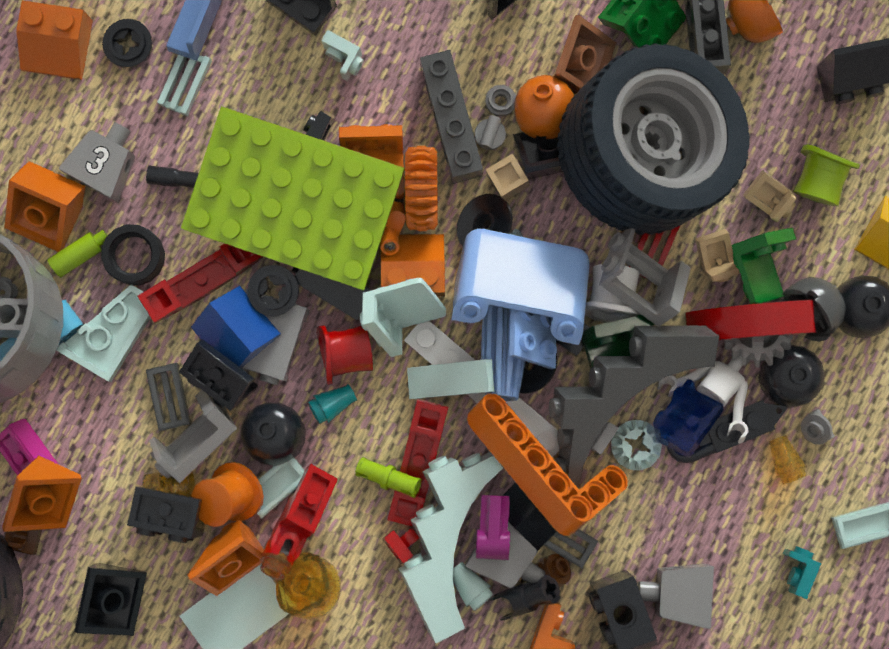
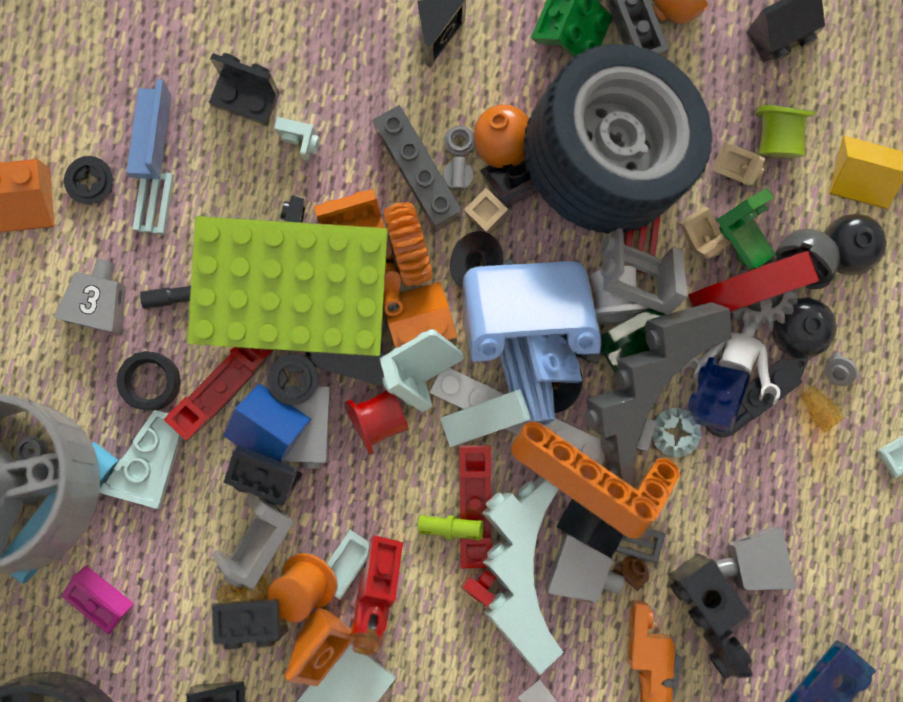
camera: 20 degrees left, 0 degrees up
(24, 541) = (115, 678): reddish brown tile -> none
(41, 497) = (123, 638): orange slope -> none
(43, 205) = (49, 357): orange slope -> none
(77, 253) = (94, 393): lime cylinder -> none
(174, 368) = (220, 508): dark grey tile -> none
(273, 433) = (329, 515): black cylinder -> none
(309, 588) = (405, 654): clear yellow cylinder -> none
(331, 403) = (377, 471): teal cone -> none
(471, 587) = (557, 610): light aqua cone -> none
(493, 535) = (566, 557): magenta piece -> none
(529, 596) = (615, 605): black piece -> none
(584, 54) = (527, 76): nougat slope -> none
(803, 576) = (868, 512): teal bracket -> none

